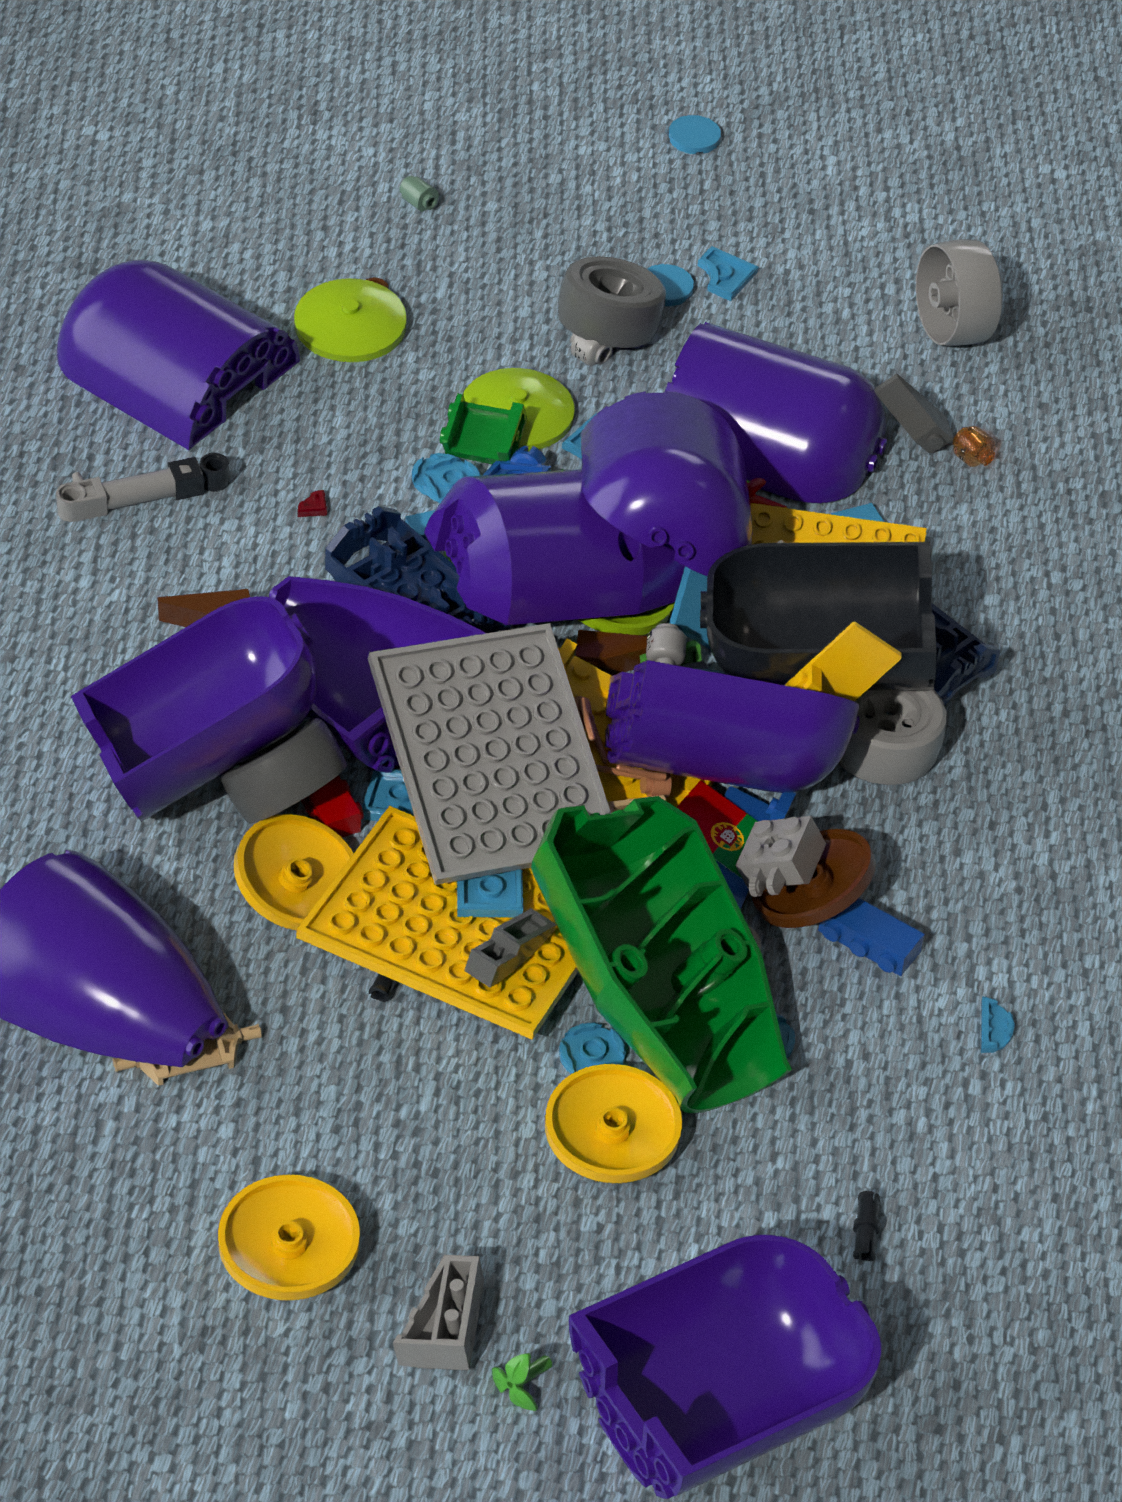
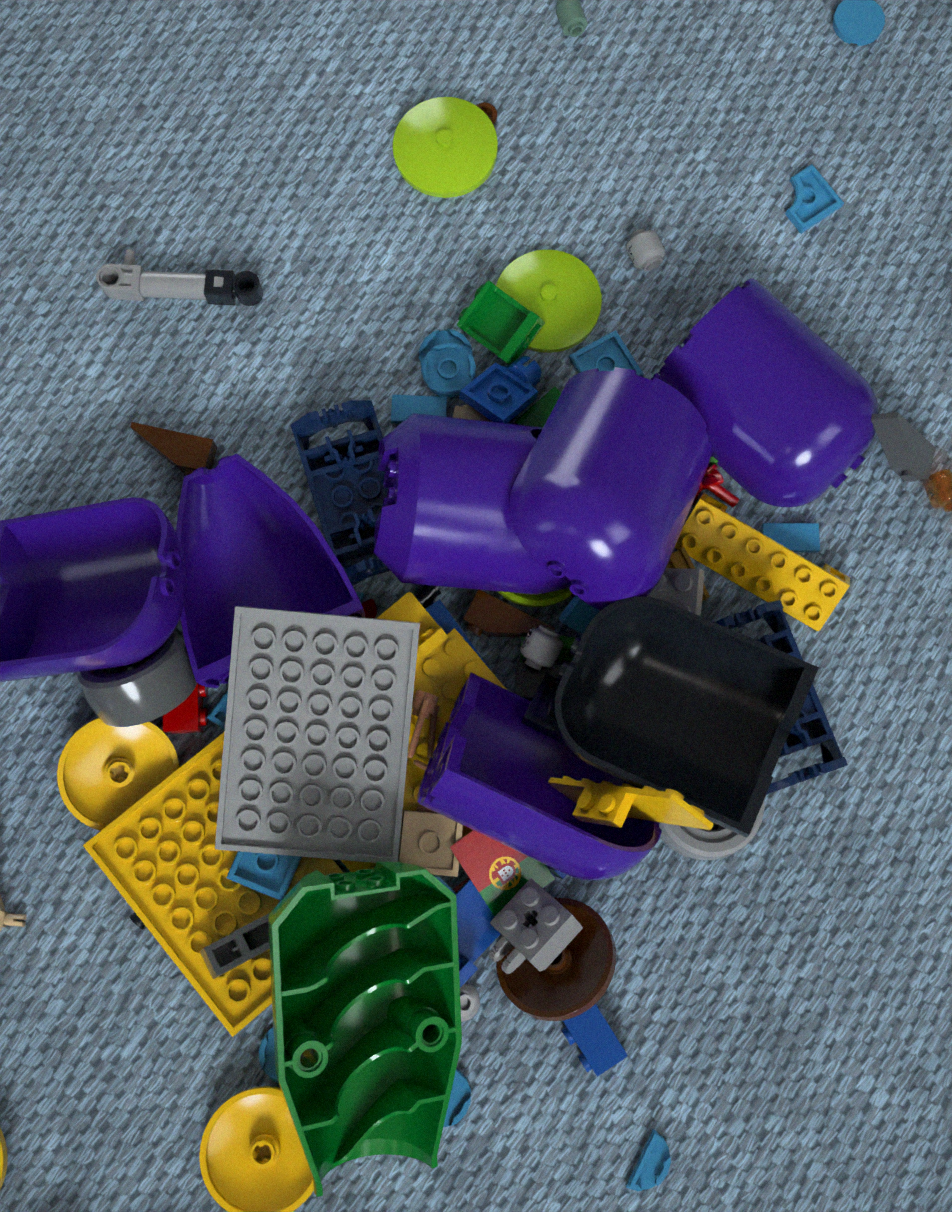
camera: 25 degrees right, 30 degrees up
(167, 348) = (266, 133): dark purple cylinder -> none
(313, 505) = (320, 351): dark red tile -> none
(611, 301) = (675, 231): dark grey wheel -> none
(676, 282) = (749, 196): dark azure tile -> none

